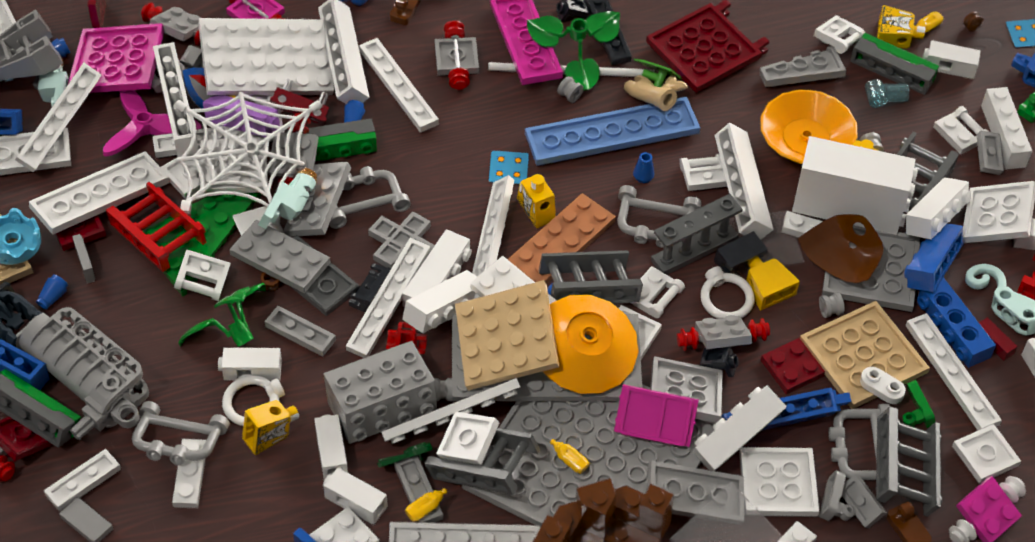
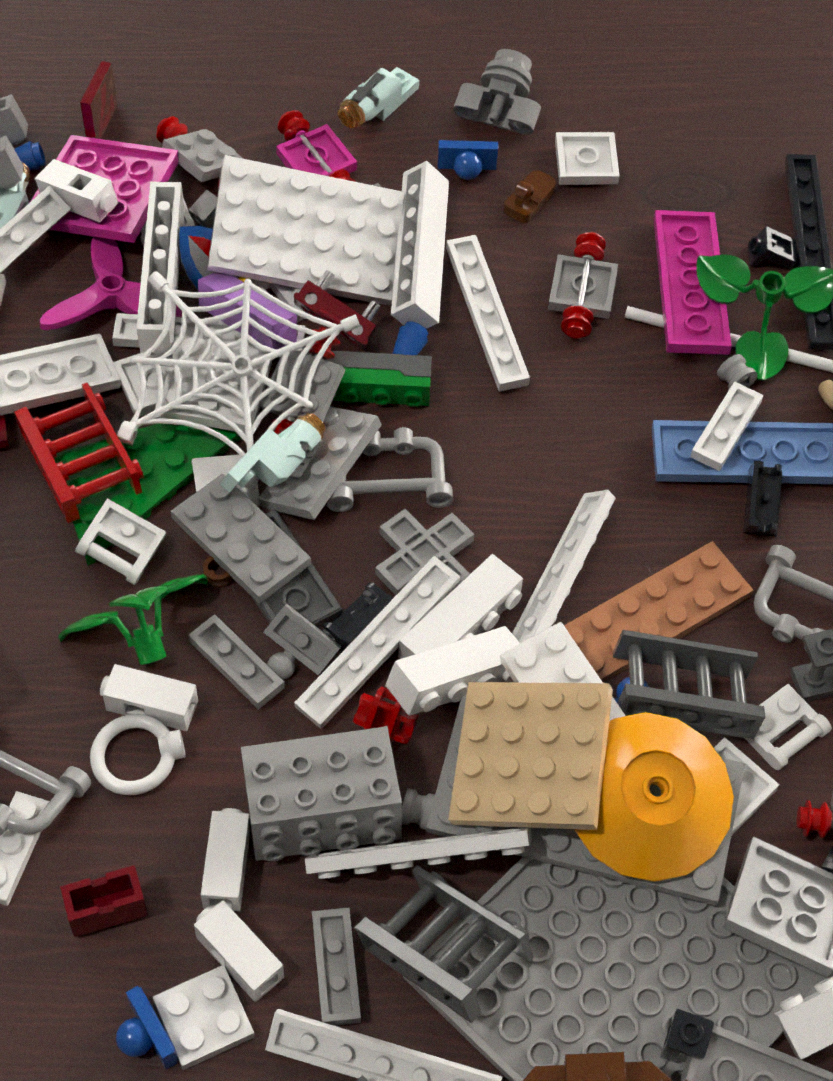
camera: 15 degrees right, 5 degrees up
(106, 61) = (80, 190): none -> white brick
(262, 486) = (104, 901): none -> dark red brick
(267, 425) = (143, 802): yellow torso -> none
(339, 309) = (300, 641): none -> light grey plate
(411, 451) = (342, 901): dark green piece -> none
(424, 504) = (336, 996): yellow piece -> none
(468, 438) = (428, 908): white plate -> none
(508, 163) = (614, 471): dark azure sticker -> none
(535, 194) = (639, 528): yellow torso -> none
(570, 456) = (581, 973): yellow piece -> none
(572, 121) = (726, 426): none -> white plate
(607, 160) = (762, 499): none -> black hinge
(644, 168) = (816, 524): blue cone -> none
(644, 471) = (687, 1035): none -> black bracket
(656, 415) = (730, 943): dark pink piece -> none

